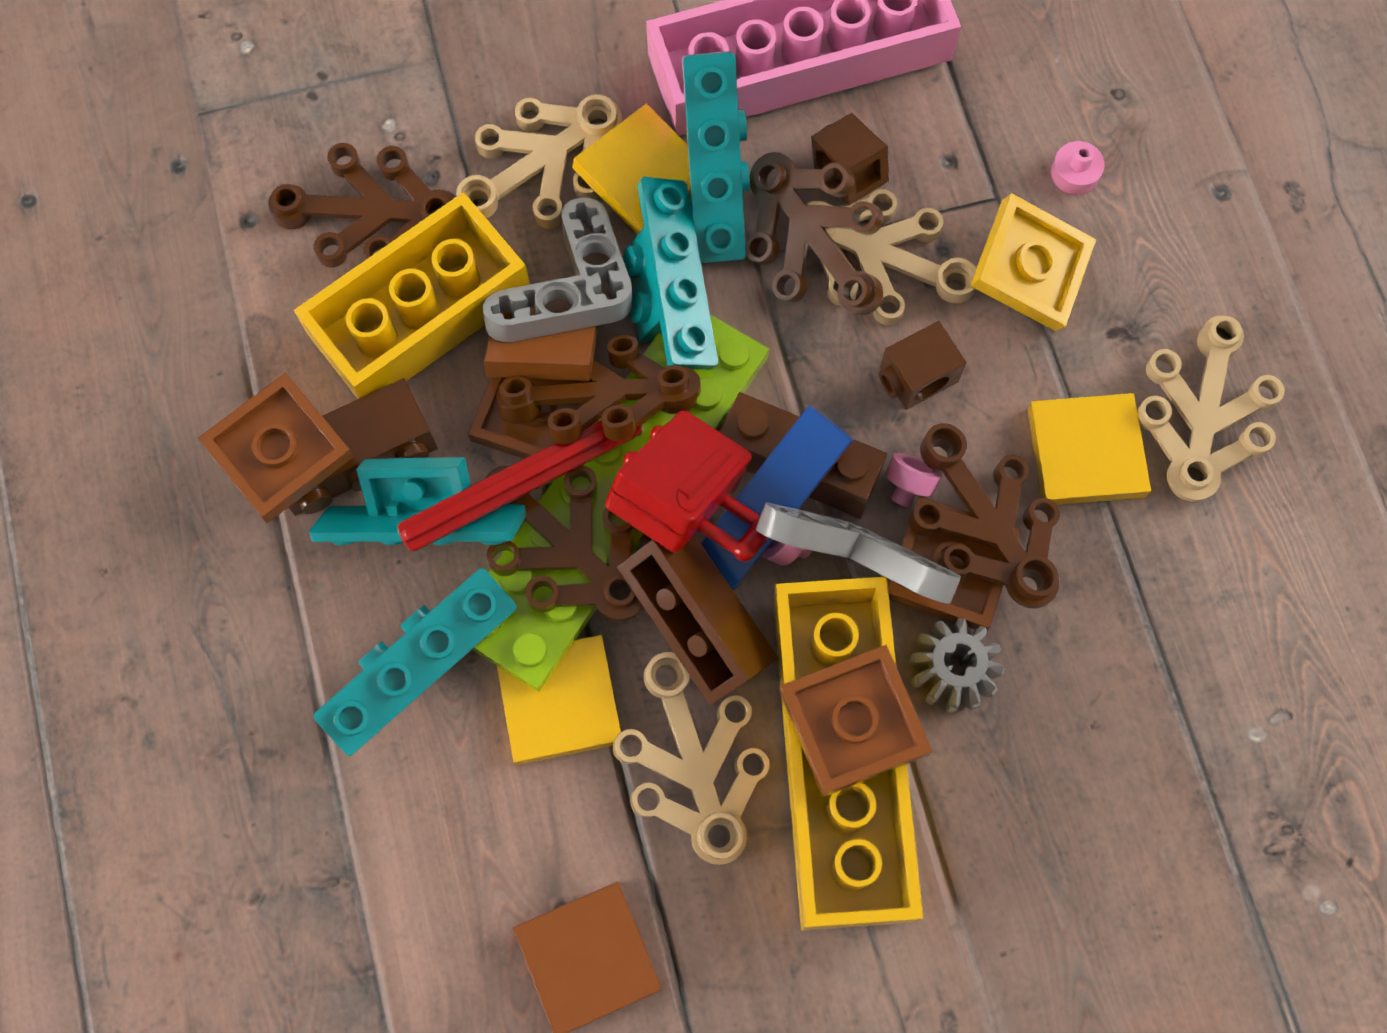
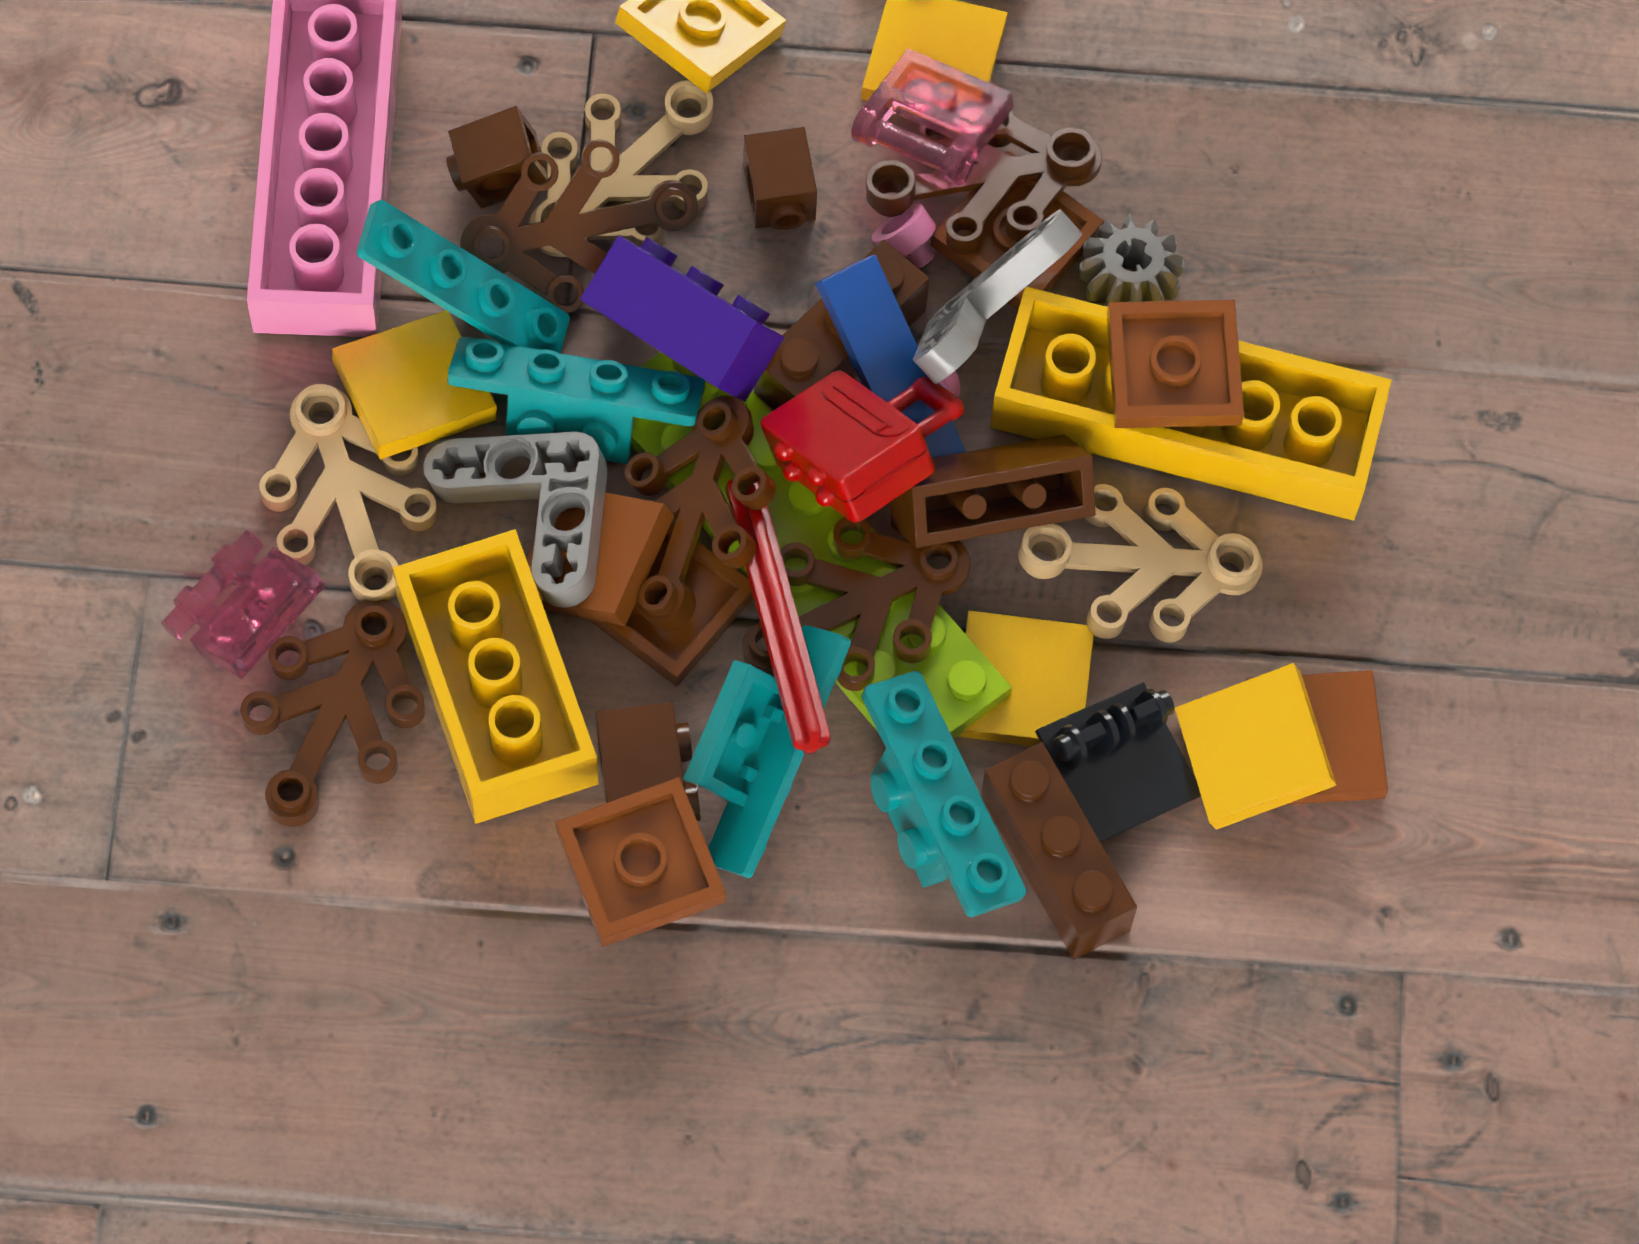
camera: 75 degrees left, 5 degrees down
(405, 773) = (1058, 850): none -> reddish brown brick
(419, 128) = (253, 614): none -> clear pink plate
(503, 798) = (1121, 760): none -> black hinge
(552, 908) = (1255, 746): none -> yellow tile
(752, 325) = (684, 315): none -> dark purple brick
(1037, 459) = (937, 99): none -> clear pink plate

